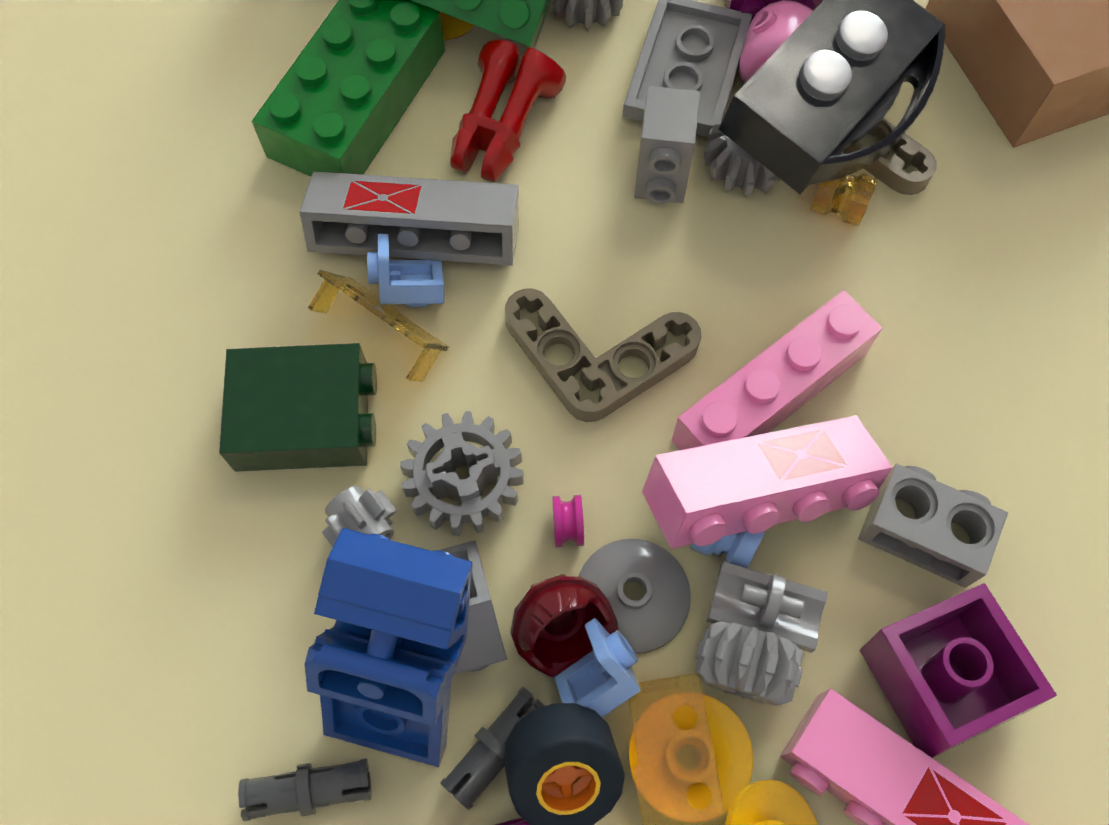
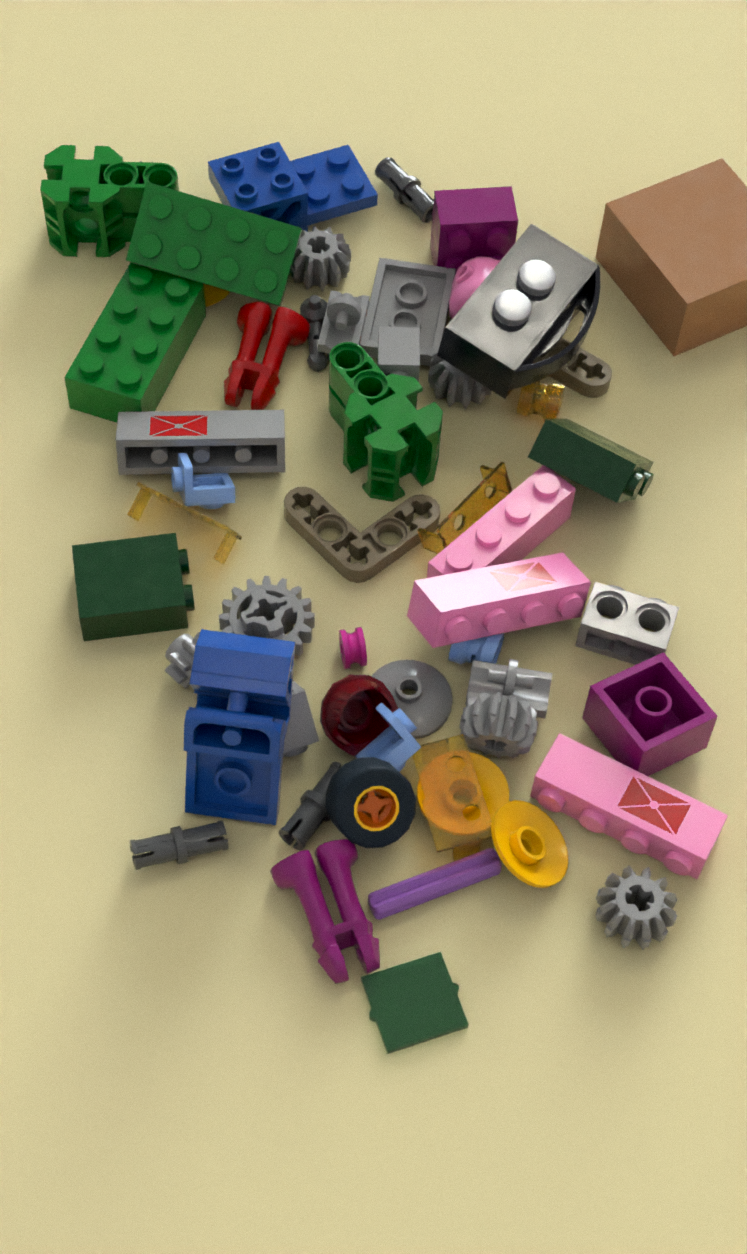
camera: 10 degrees left, 10 degrees down
(576, 60) = (313, 311): none -> dark grey piece
(605, 79) = (342, 320): none -> light grey hips
(639, 211) = (382, 422): none -> green connector
(743, 343) = (471, 508): none -> clear yellow piece
(906, 290) = (592, 460): none -> dark green brick

